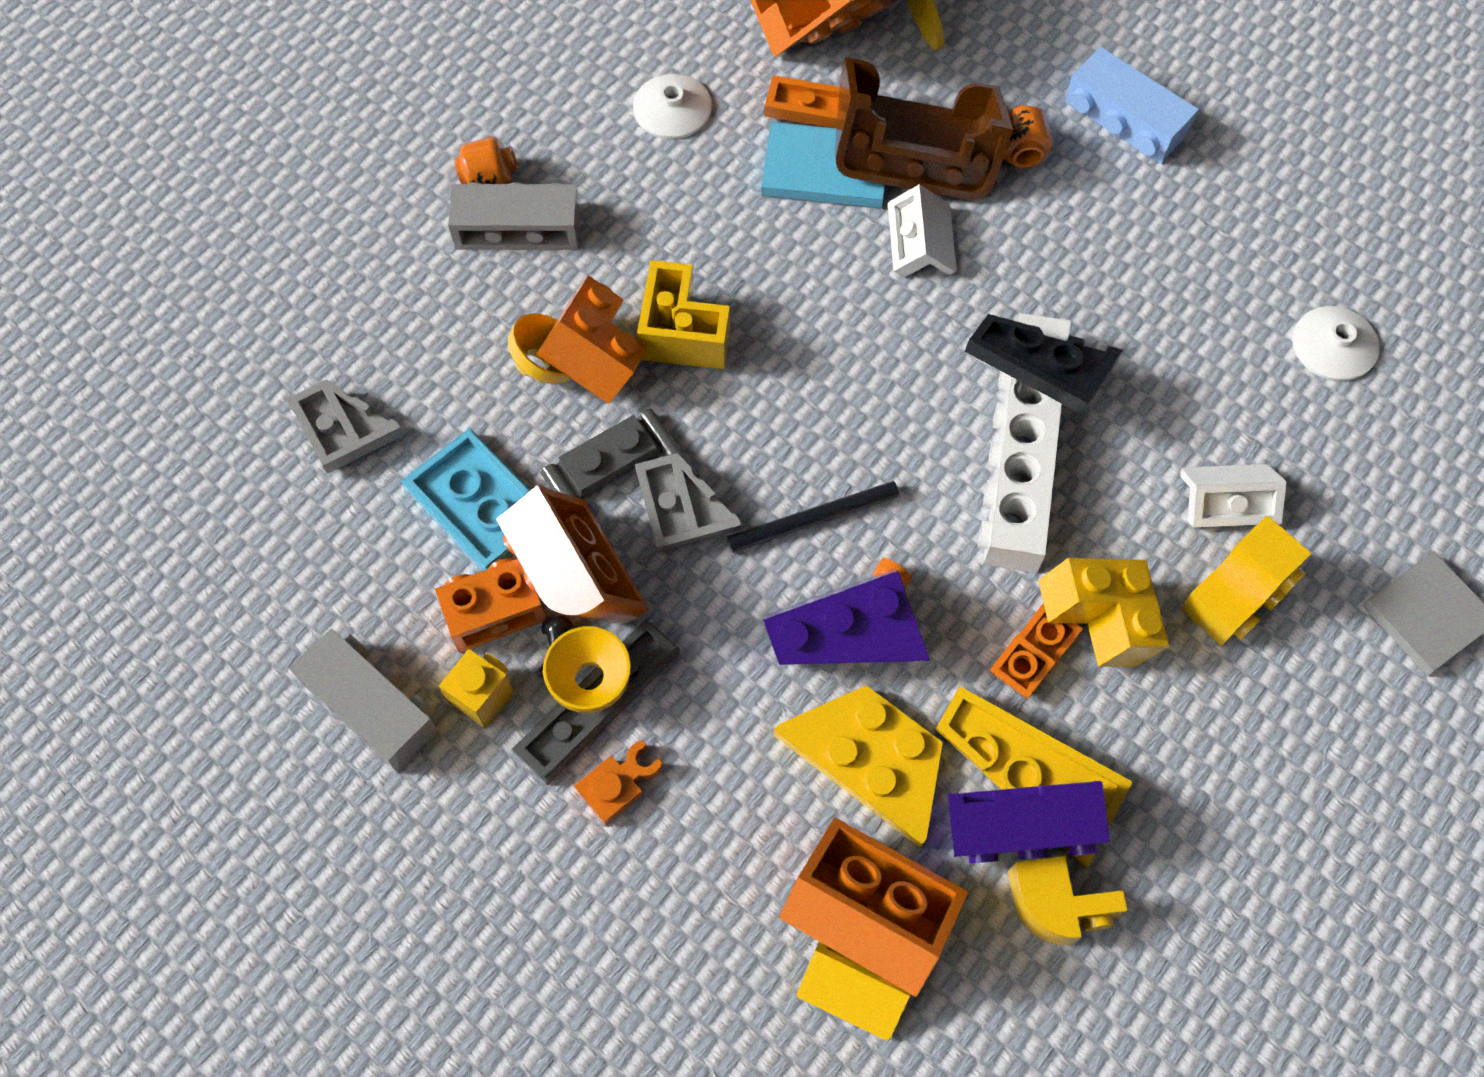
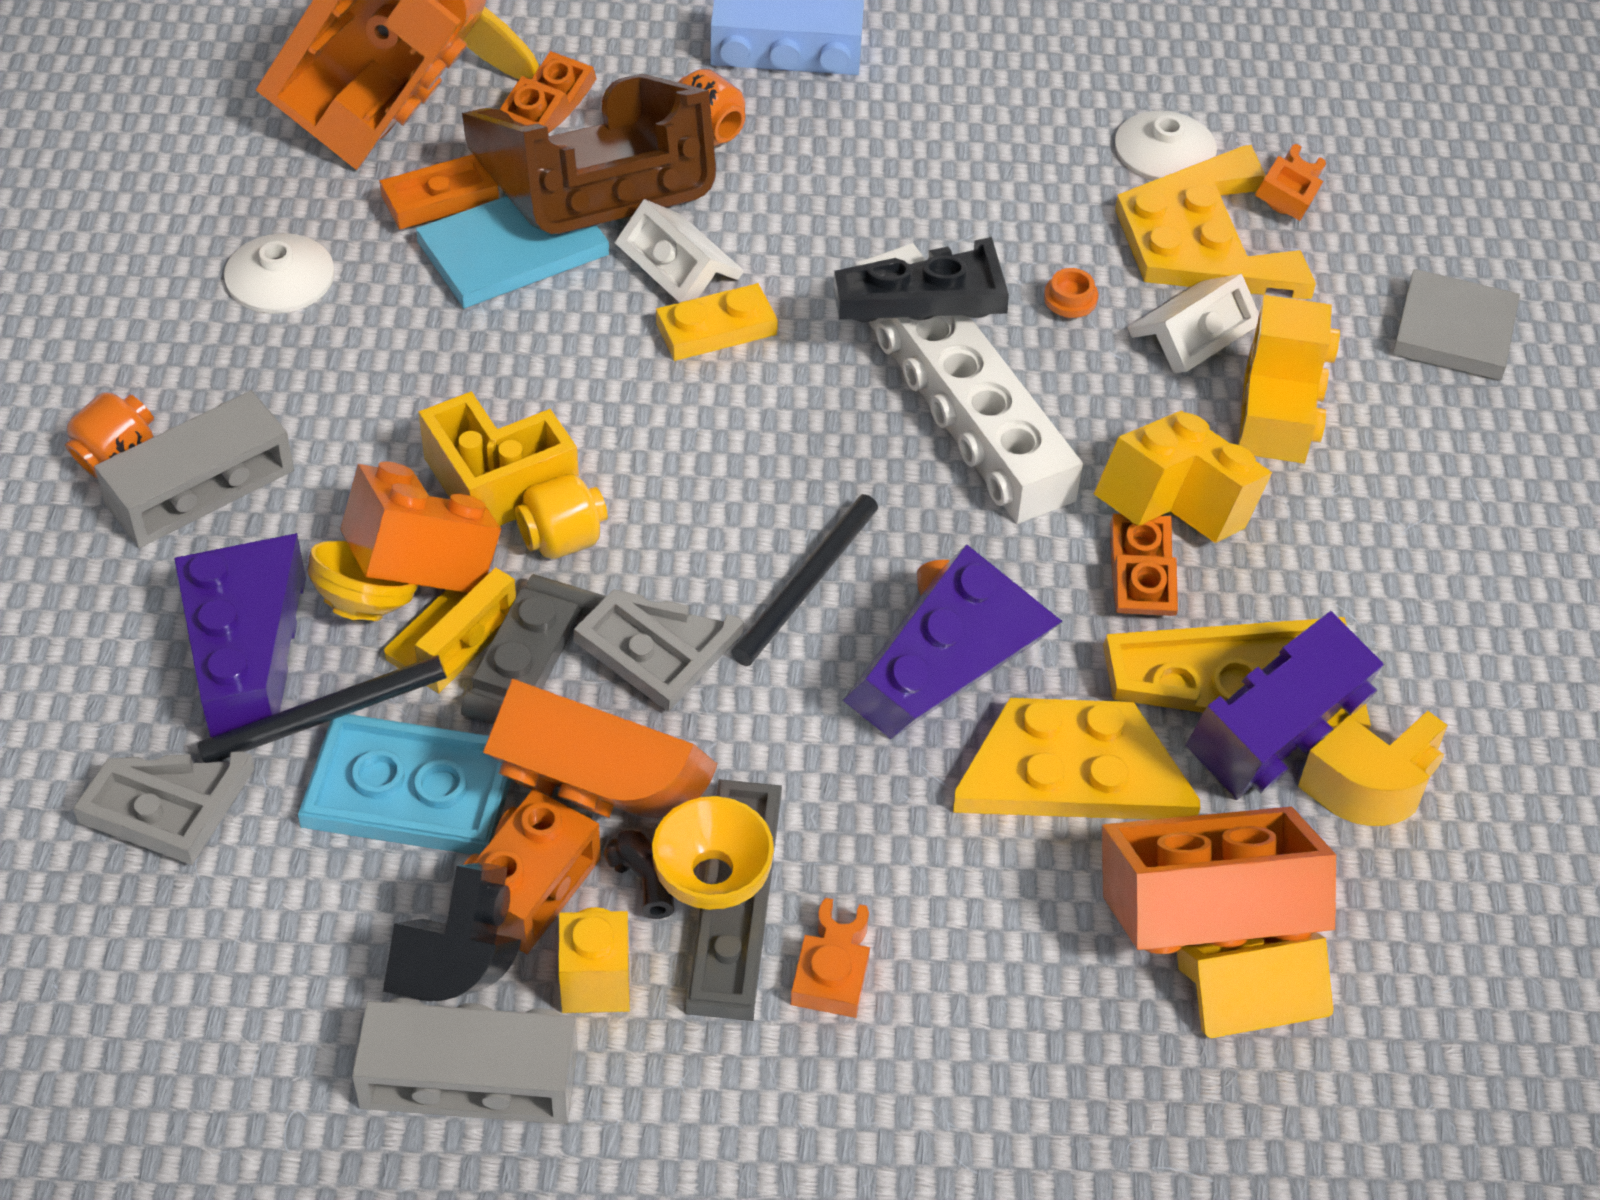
camera: 40 degrees left, 15 degrees down
(404, 625) = (459, 957): none -> black brick
(451, 344) = (241, 626): none -> dark purple wedge
(461, 424) = (322, 709): none -> black bar
(574, 417) = (455, 627): none -> yellow panel
(694, 380) = (560, 516): none -> yellow head
(907, 298) = (716, 321): none -> yellow plate
(929, 71) = (550, 93): none -> orange slope
(1161, 420) = (1071, 293): none -> orange plate
(1288, 420) = (1186, 235): none -> yellow wing
(1400, 429) = (1291, 183): none -> orange plate

